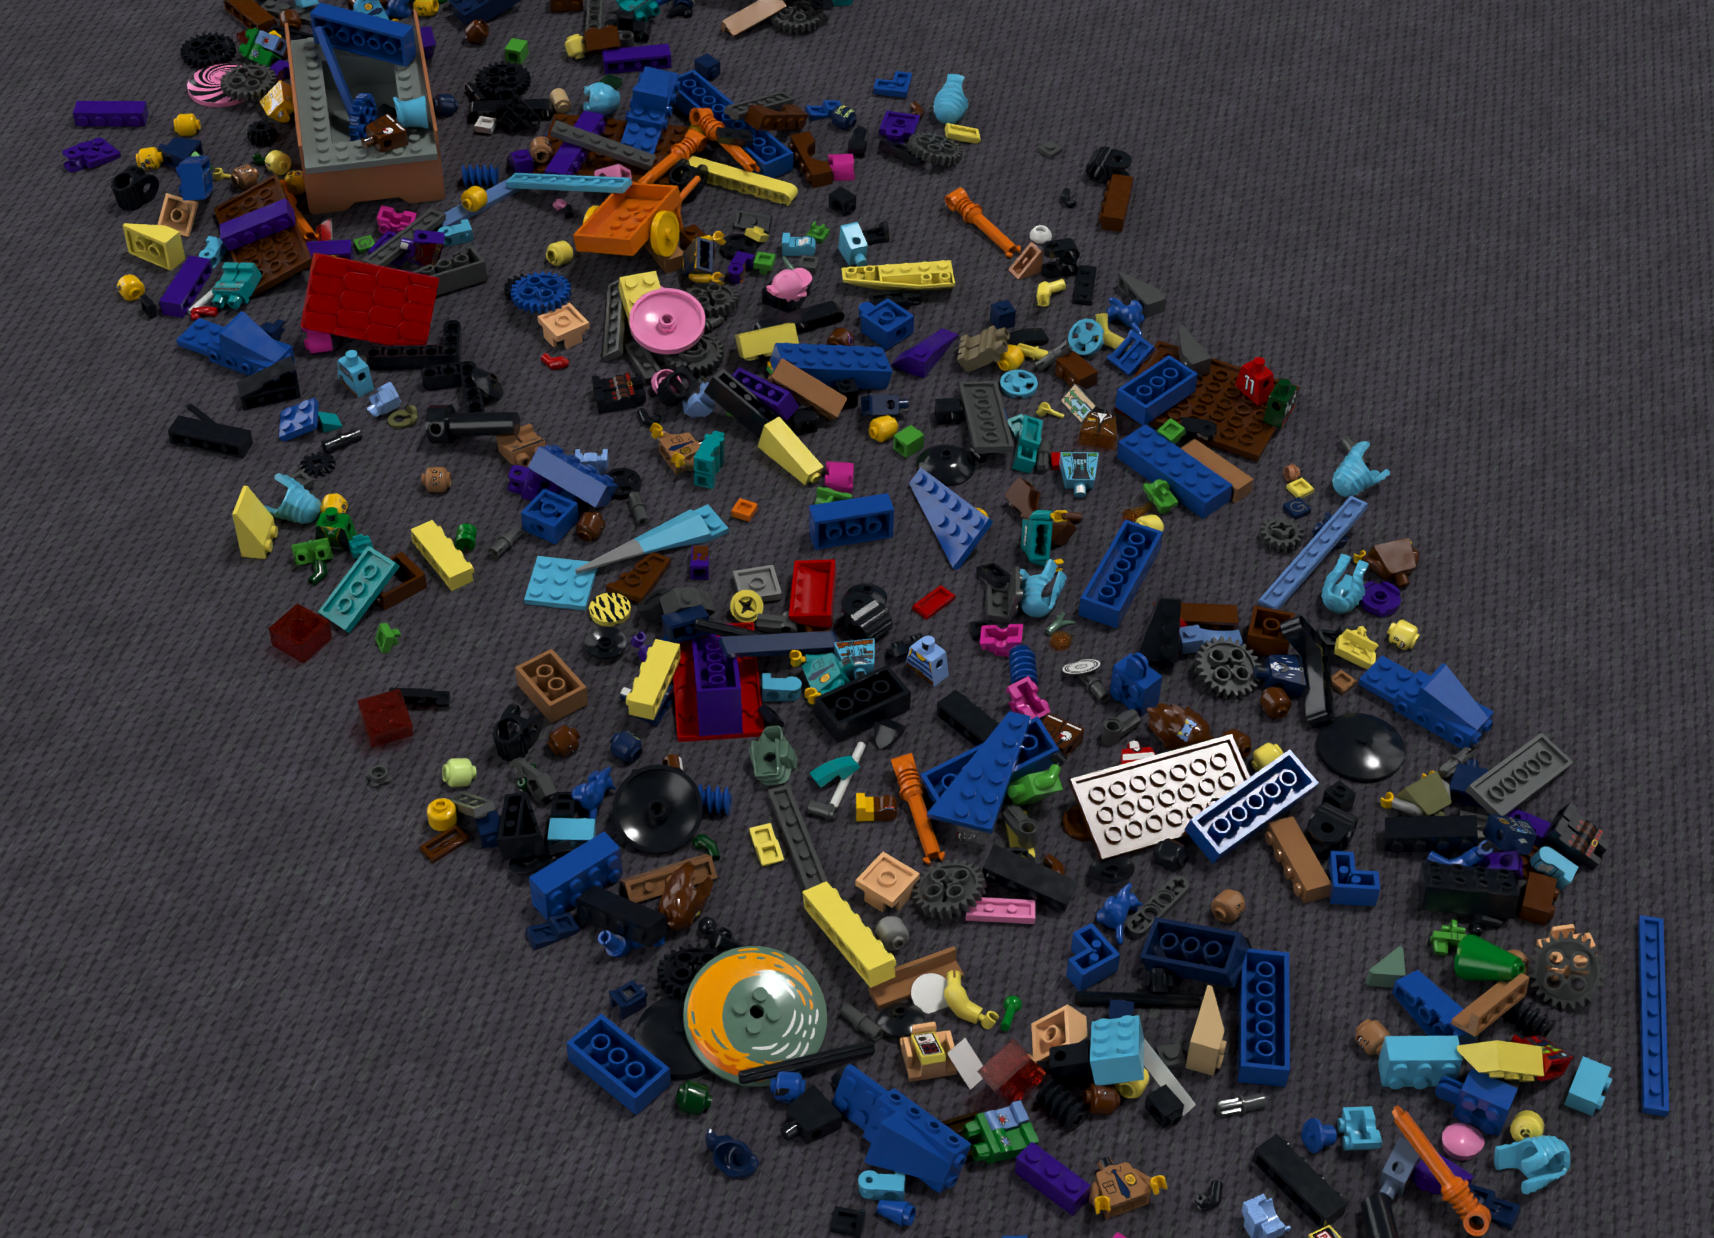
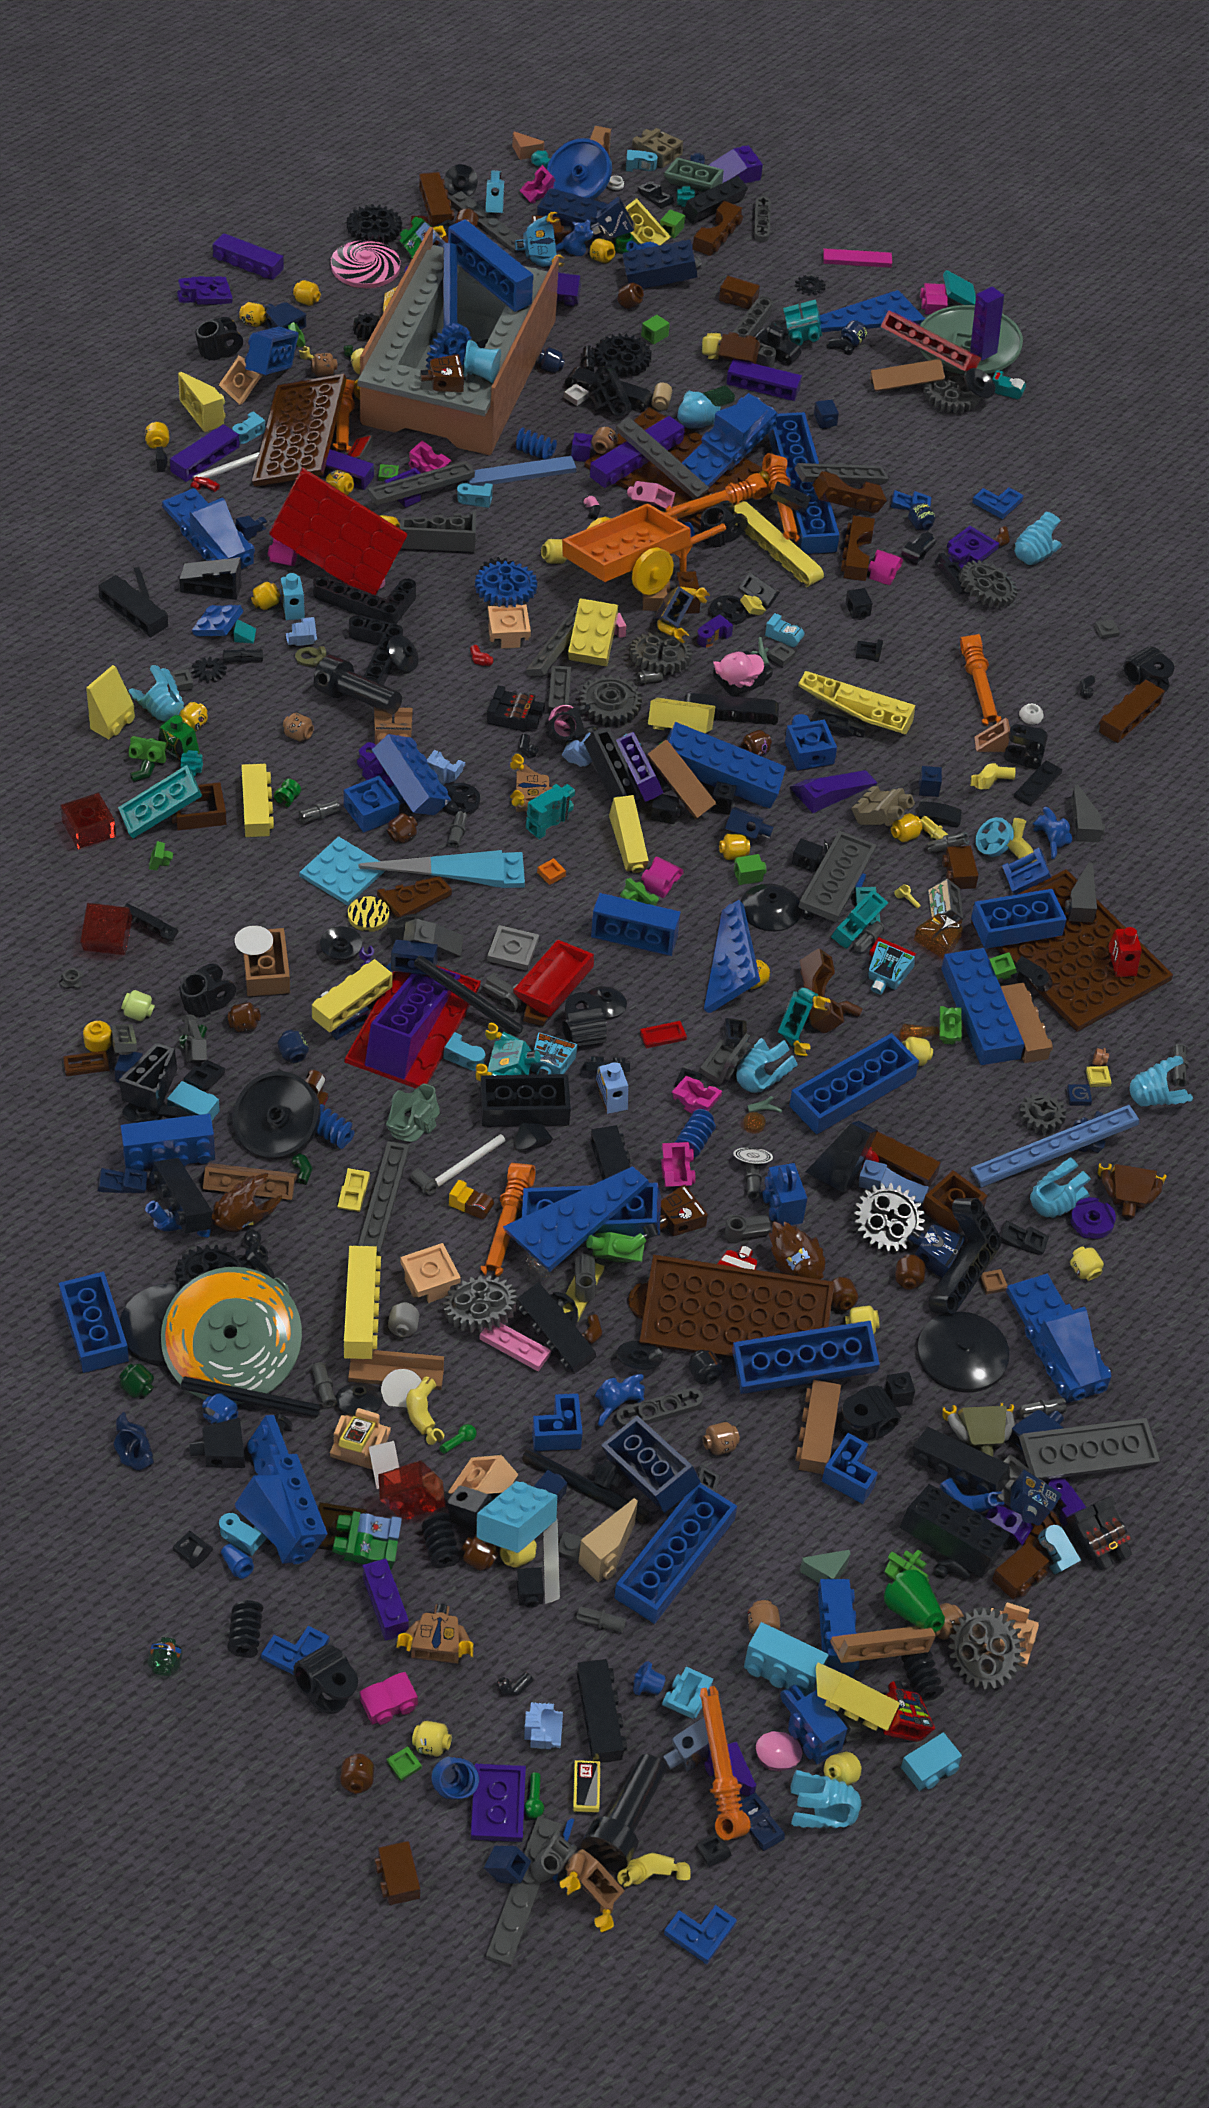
camera: 25 degrees right, 5 degrees up
(236, 284) = (245, 469): teal hips -> none
(248, 82) = (382, 270): dark grey gear -> none
(257, 224) = (296, 417): dark purple brick -> none
(328, 382) = (265, 595): none -> yellow head
(424, 247) = (432, 497): torso -> none
(474, 198) = (511, 466): yellow head -> none
(532, 669) = (253, 940): none -> white sticker
(569, 182) = (603, 485): medium azure tile -> none
(592, 793) = (233, 1075): blue animal -> none
(629, 998) = (142, 1270): dark blue window -> none
(667, 321) = (598, 659): bright pink dish -> none
(699, 560) = (476, 903): dark purple leg -> none
(744, 596) = (477, 962): light yellow gear -> none
(764, 262) = (739, 635): bright green tile -> none
(770, 716) = (438, 1075): black tile -> none
(777, 644) = (484, 1011): dark blue tile -> none
(818, 233) = (813, 626): bright green tile -> none
(839, 767) = (464, 1149): teal slope -> none
(853, 244) = (834, 659): medium azure torso -> none
(962, 133) = (1029, 578): light yellow plate -> none
(1012, 382) = (898, 856): medium azure piece -> none
(1282, 394) = (1132, 984): dark green torso -> none
(1356, 647) = (1029, 1254): light yellow slope -> none
(1653, 1016) = (1047, 1730): blue plate -> none

